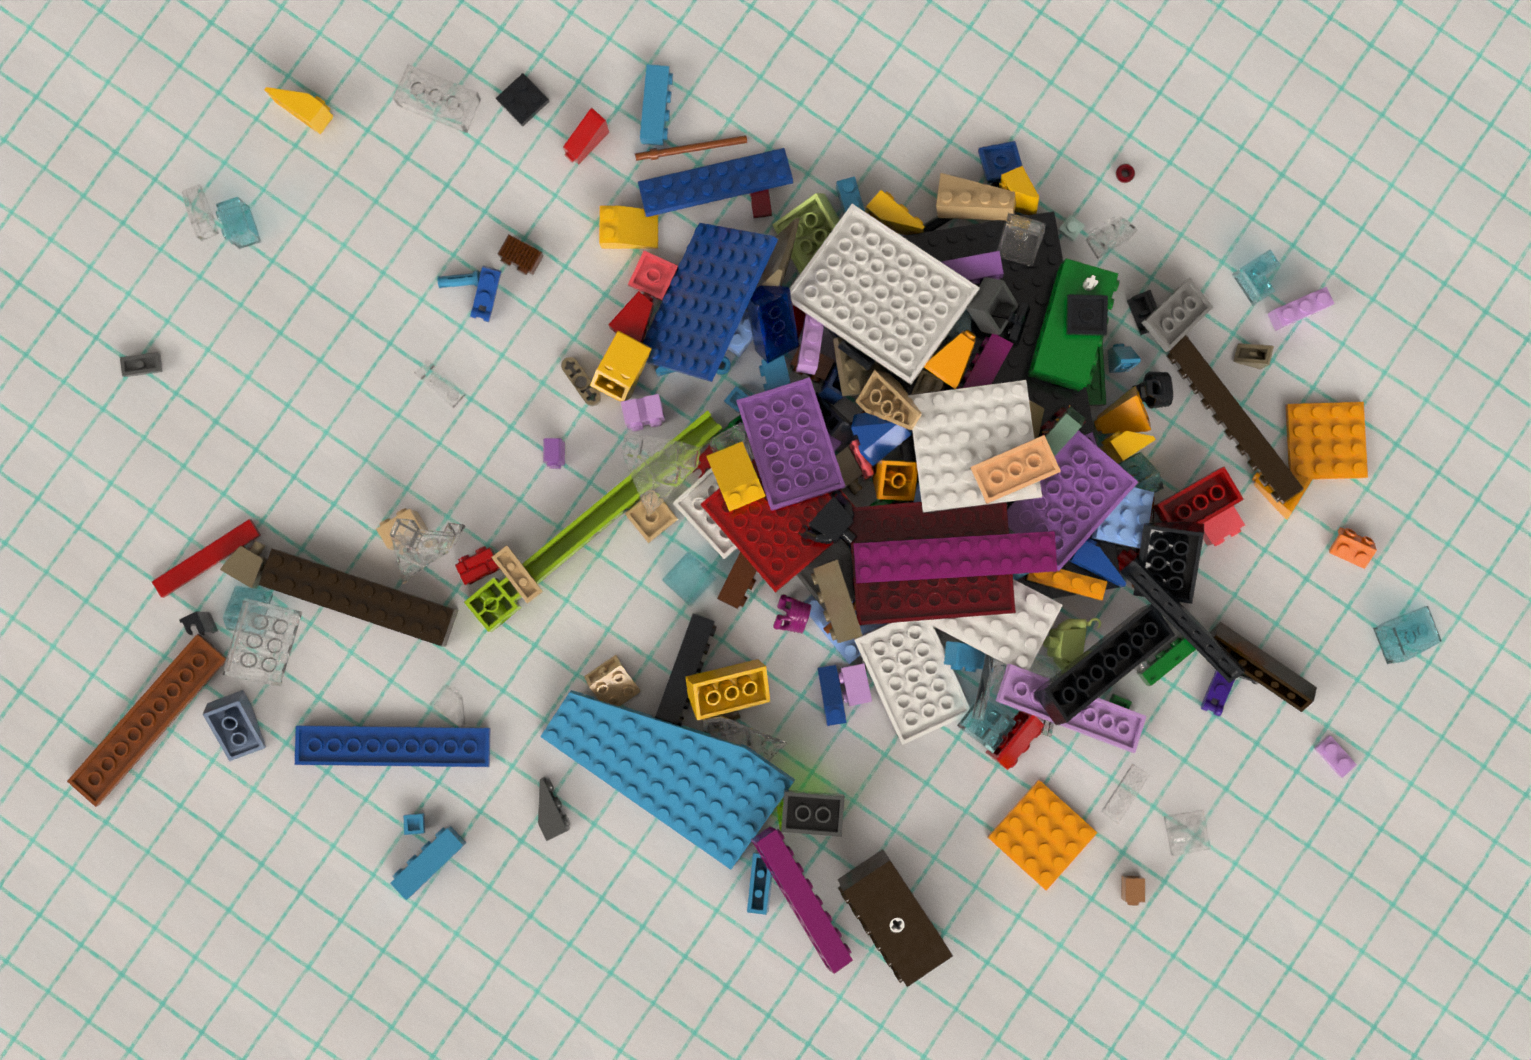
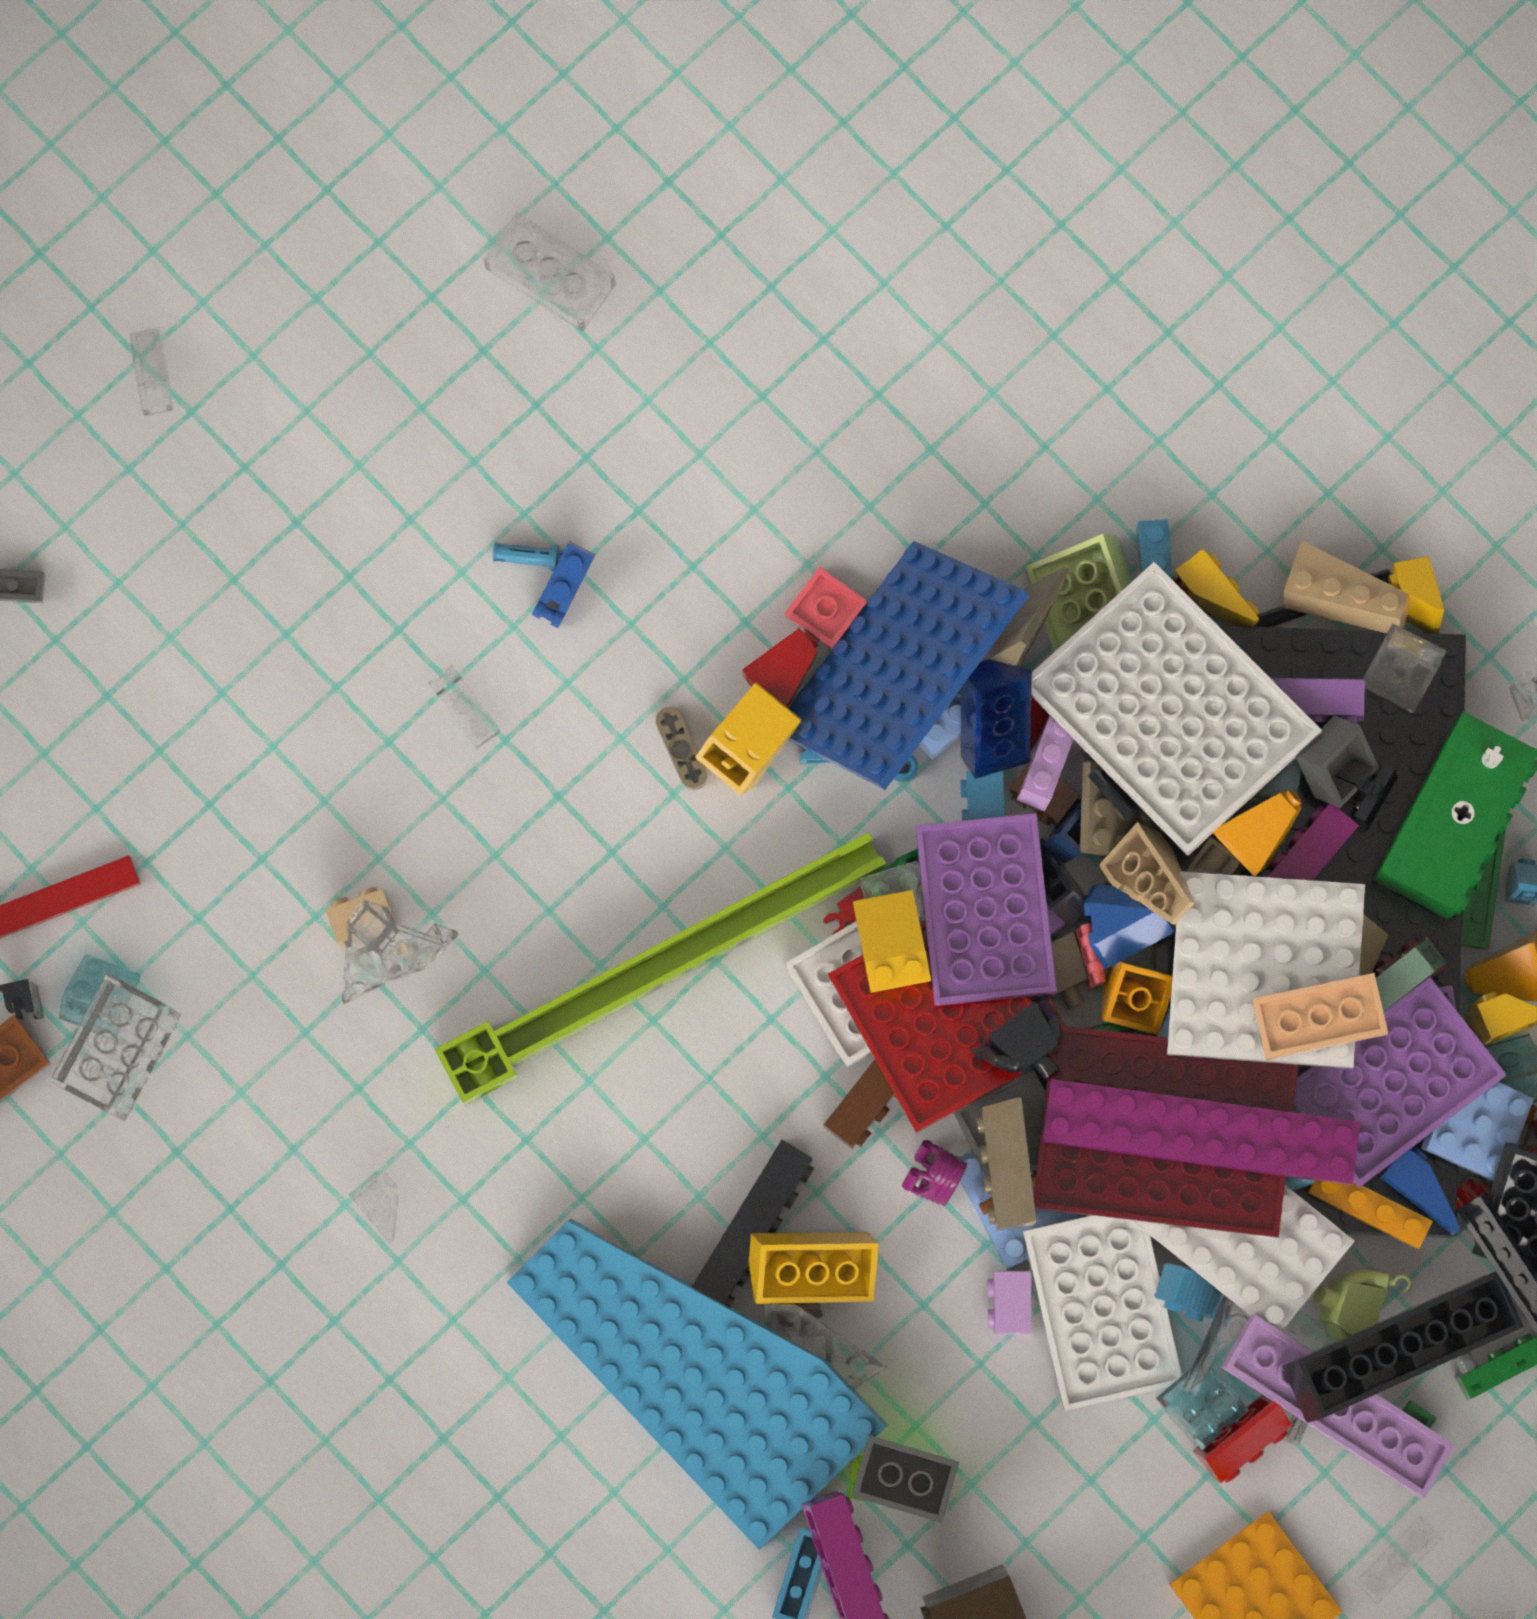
camera: 15 degrees right, 5 degrees down
(234, 725) = (42, 1167): sand blue slope -> none
(237, 223) = (208, 401): clear light blue piece -> none
(246, 564) = (112, 924): dark tan torso -> none
(303, 106) = (343, 244): yellow slope -> none
(358, 597) = (273, 1010): dark brown brick -> none
(392, 746) = (276, 1249): blue plate -> none
(414, 824) = (285, 1376): dark azure plate -> none
(424, 866) = (295, 1440): dark azure brick -> none
(477, 566) = (465, 998): red brick -> none
(517, 574) = (526, 1023): tan plate -> none
(520, 255) = (627, 535): reddish brown brick -> none
(522, 99) = (679, 298): black plate -> none
(550, 816) = (497, 1408): dark grey slope -> none
(554, 452) = (618, 849): medium lavender brick -> none
(586, 137) = (766, 376): red slope -> none
(612, 682) = (635, 1221): tan bracket -> none
(627, 228) = (802, 527): yellow slope -> none
(643, 412) = (768, 815): lavender brick -> none
(653, 154) = (866, 421): dark orange bar -> none
(655, 105) = (882, 348): dark azure brick -> none
(655, 524) = (747, 977): tan plate -> none
(658, 466) = (775, 902): clear wedge -> none
(689, 579) = (786, 1086): clear light blue piece -> none
(715, 182) = (951, 484): blue plate -> none
(735, 394) = (915, 817): dark azure plate -> none
(761, 204) = (1015, 521): dark red slope -> none
(831, 695) = (970, 1312): blue slope -> none
(998, 160) = (1398, 538): blue plate -> none
(1071, 228) = (1489, 665): light aqua plate -> none
(1087, 315) = (1477, 804): black plate -> none

